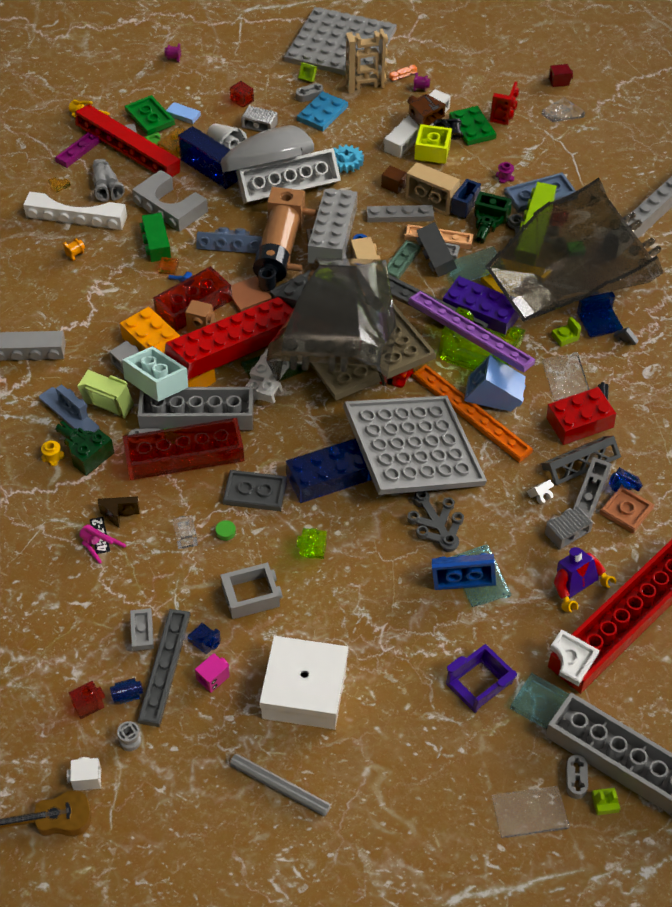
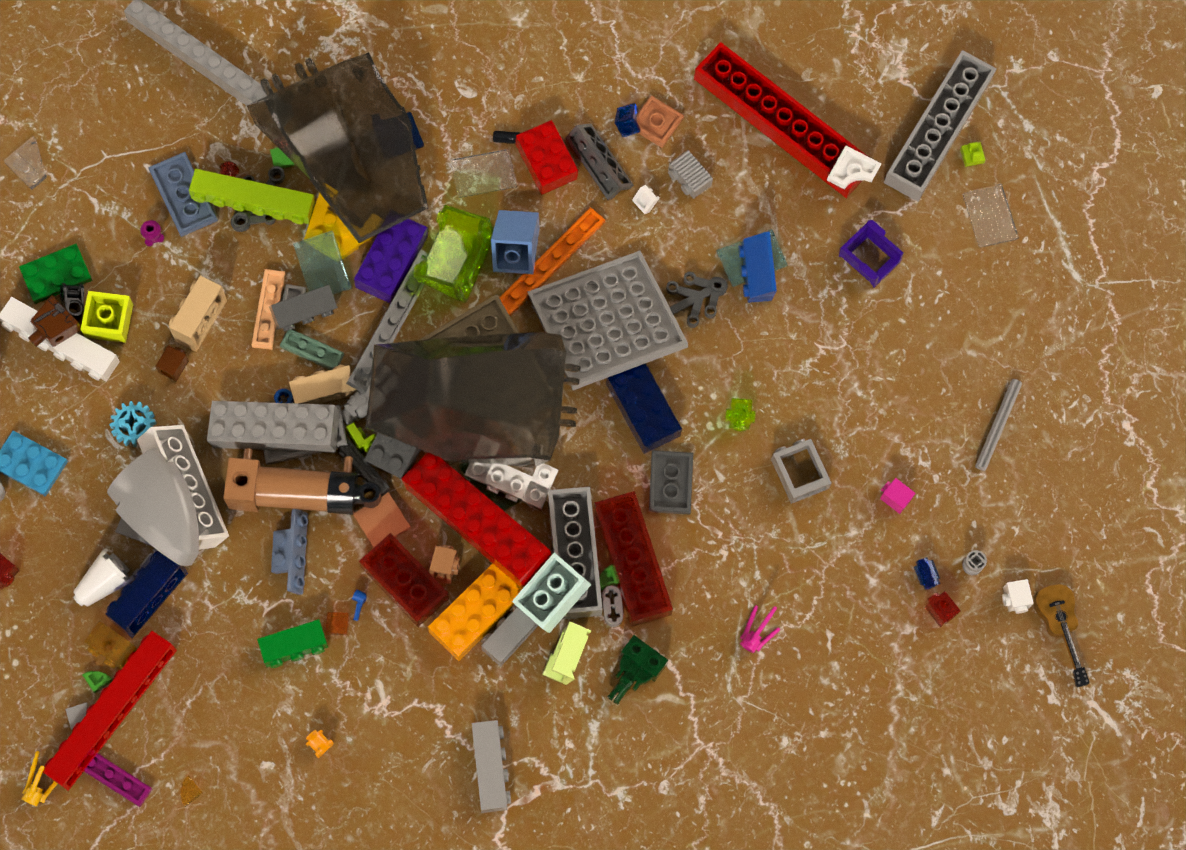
camera: 100 degrees left, 20 degrees up
(51, 452) = (645, 711): yellow brick -> none
(68, 408) = (581, 700): sand blue bracket -> none
(101, 546) = (733, 639): black sticker -> none
(104, 179) = (181, 728): light grey piece -> none
(106, 215) = (242, 800): white arch -> none
(114, 507) = (715, 622): dark brown slope -> none
(142, 629) = (857, 570): light grey plate -> none
(149, 115) = (46, 691): green plate -> none
(164, 668) = (892, 544): dark grey tile -> none
(176, 215) = (216, 666): light grey arch -> none
(183, 113) = (37, 648): light blue tile -> none
(185, 532) = (737, 544): clear brick -> none
(205, 638) = (858, 508): clear blue bracket -> none
(225, 530) = (726, 506): bright green tile -> none
(259, 119) = (55, 541): light grey brick -> none
(304, 682) = (902, 407): white container -> none
(407, 213) = (229, 355): light grey plate -> none
(465, 198) = (203, 267): dark blue piece -> none
(472, 331) = (457, 259): medium lavender tile -> none
(490, 213) = (237, 249): dark green brick -> none
(504, 106) = (32, 223): red bracket -> none
(539, 700) = (883, 205): clear light blue tile -> none
(567, 333) = (426, 173): lime bracket -> none
(577, 573) = (750, 167): torso -> none
(581, 776) = (953, 176): light grey beam -> none
(593, 486) = (637, 149): light grey slope -> none
(626, 335) = (420, 115): dark grey tile -> none

